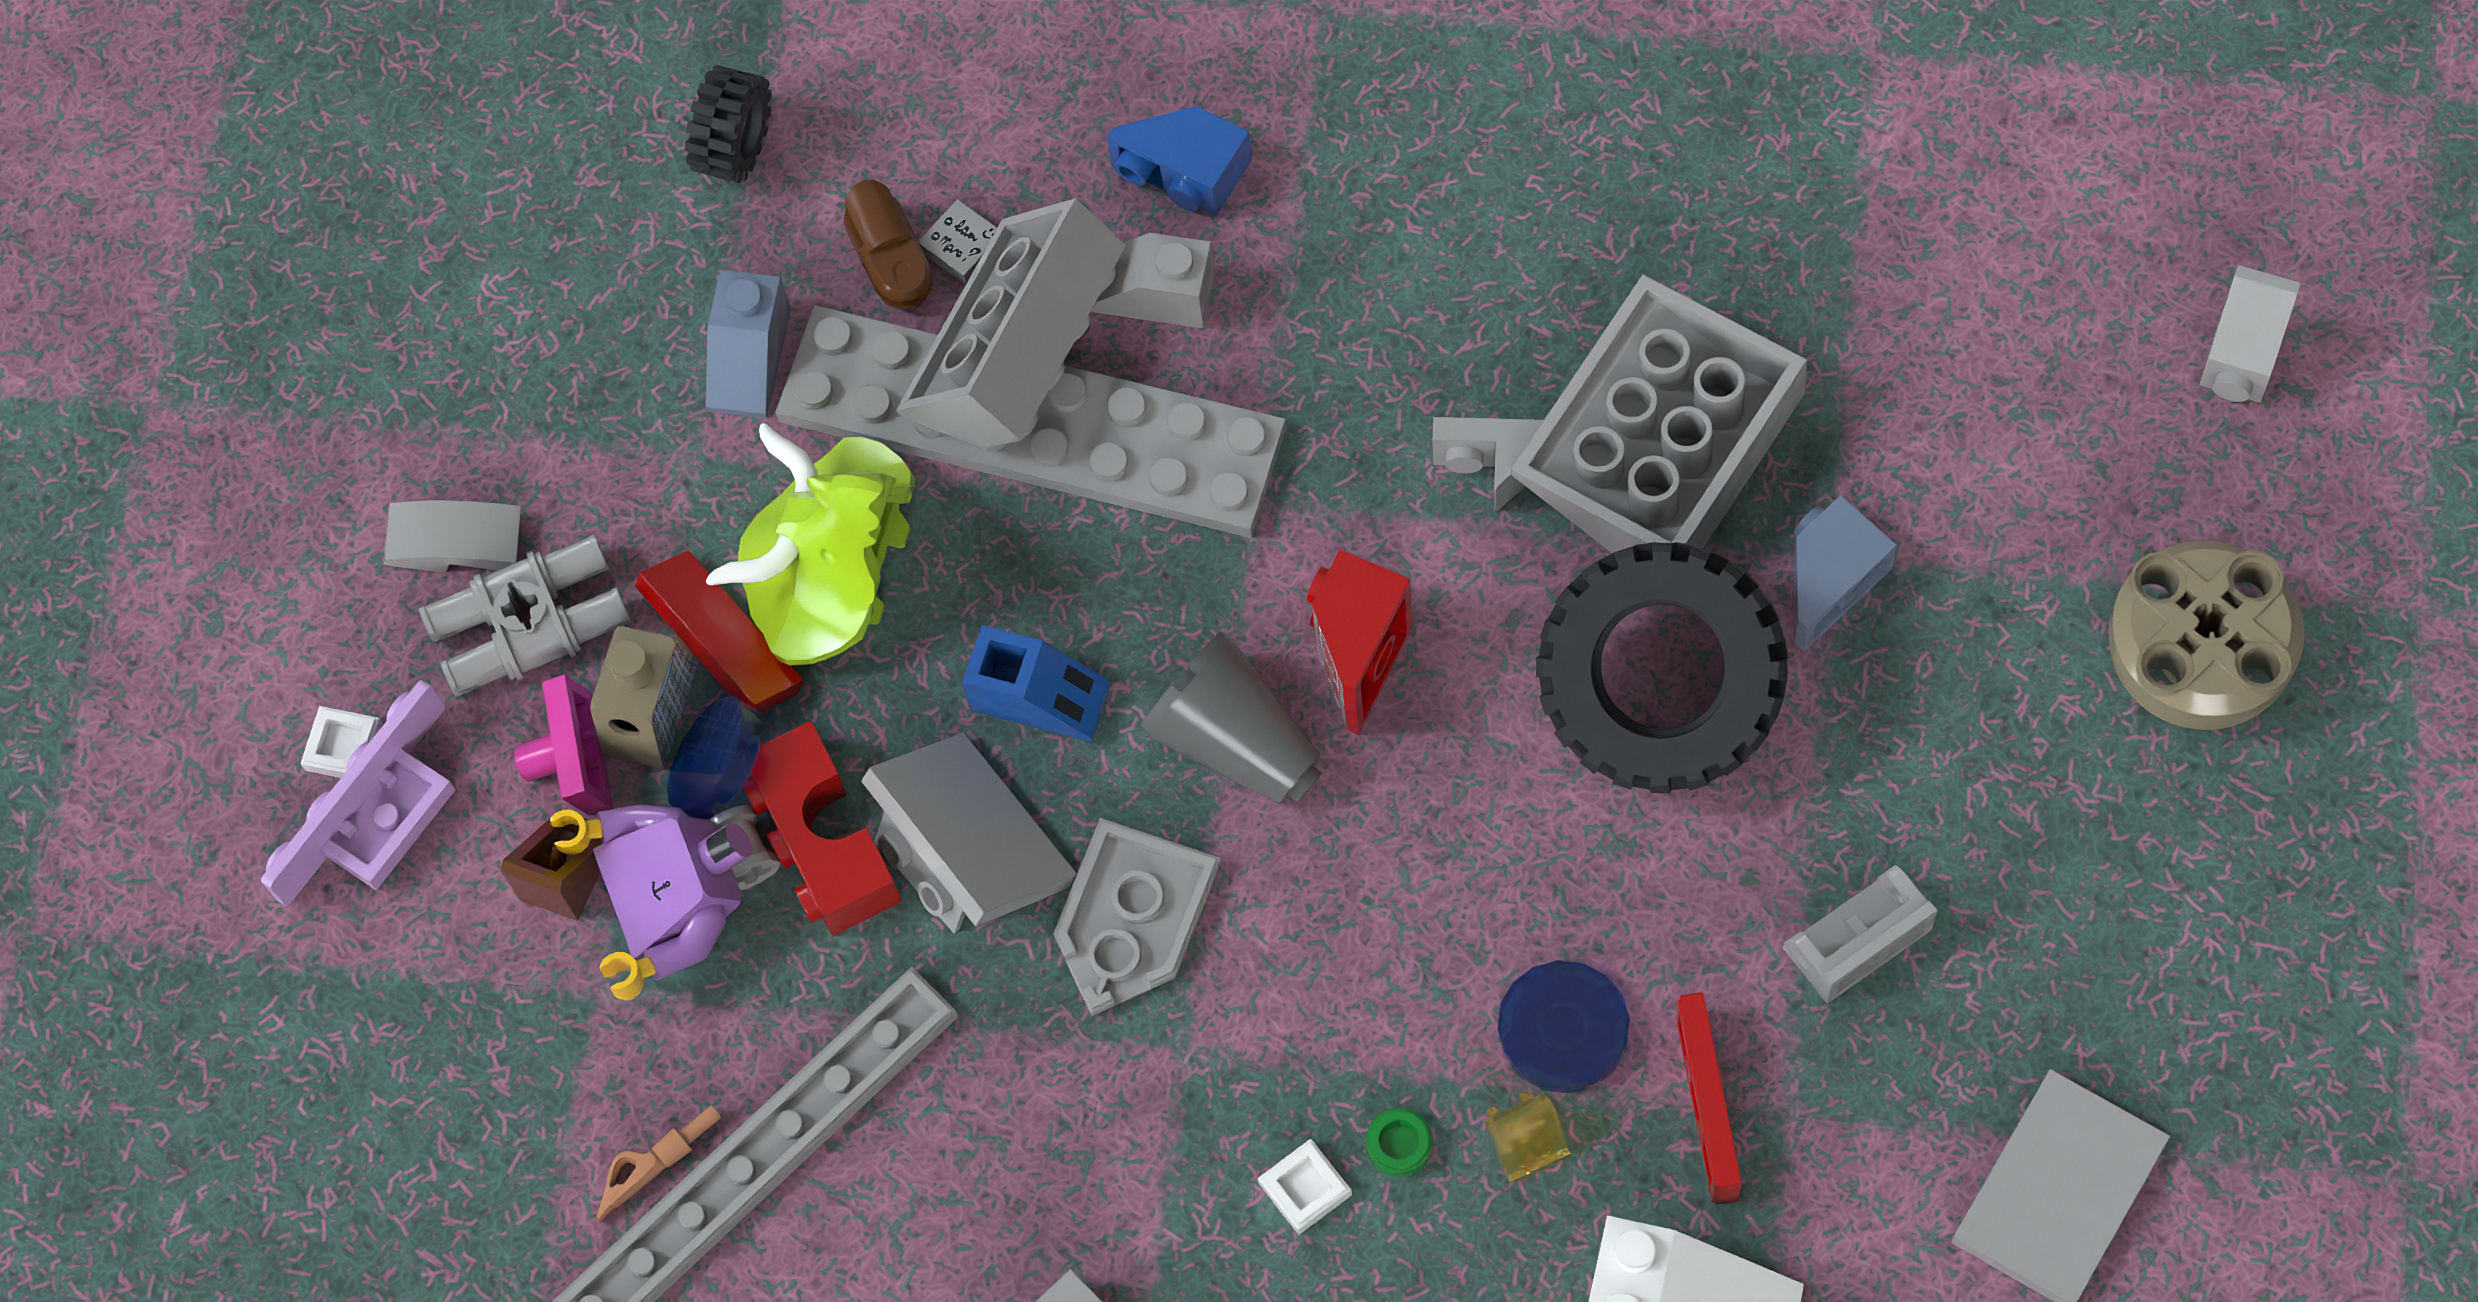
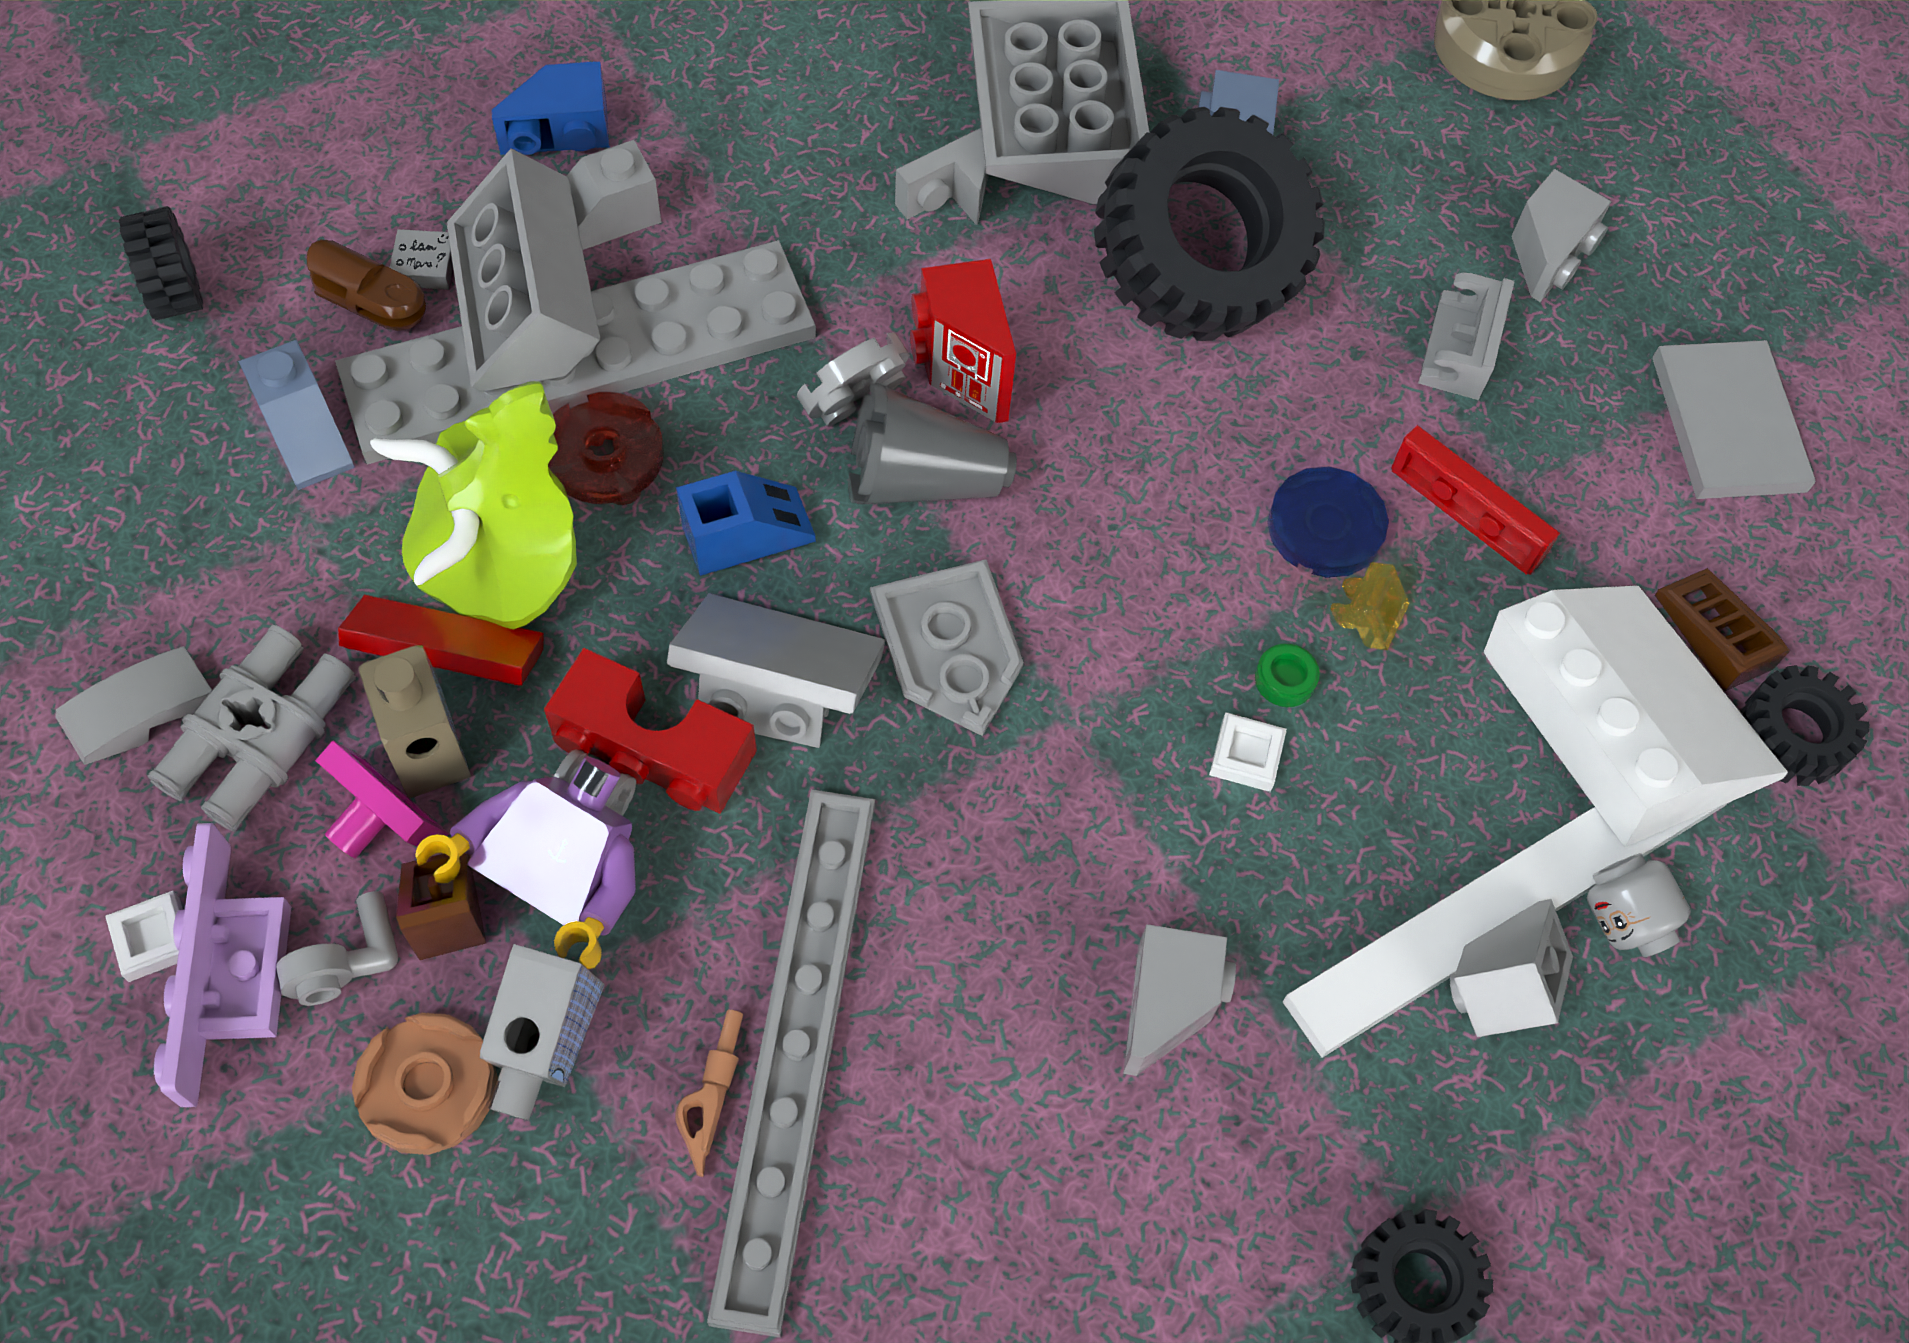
camera: 50 degrees left, 5 degrees down
(436, 861) = (321, 970): none -> light grey plate
(468, 1020) = (439, 1103): none -> nougat tile
(555, 1018) = (537, 997): none -> light grey torso
(714, 757) = (519, 725): clear blue tile -> none
(983, 569) = (611, 477): none -> clear red plate
(1209, 611) = (851, 375): none -> light grey plate
(2055, 882) = (1555, 229): none -> light grey slope

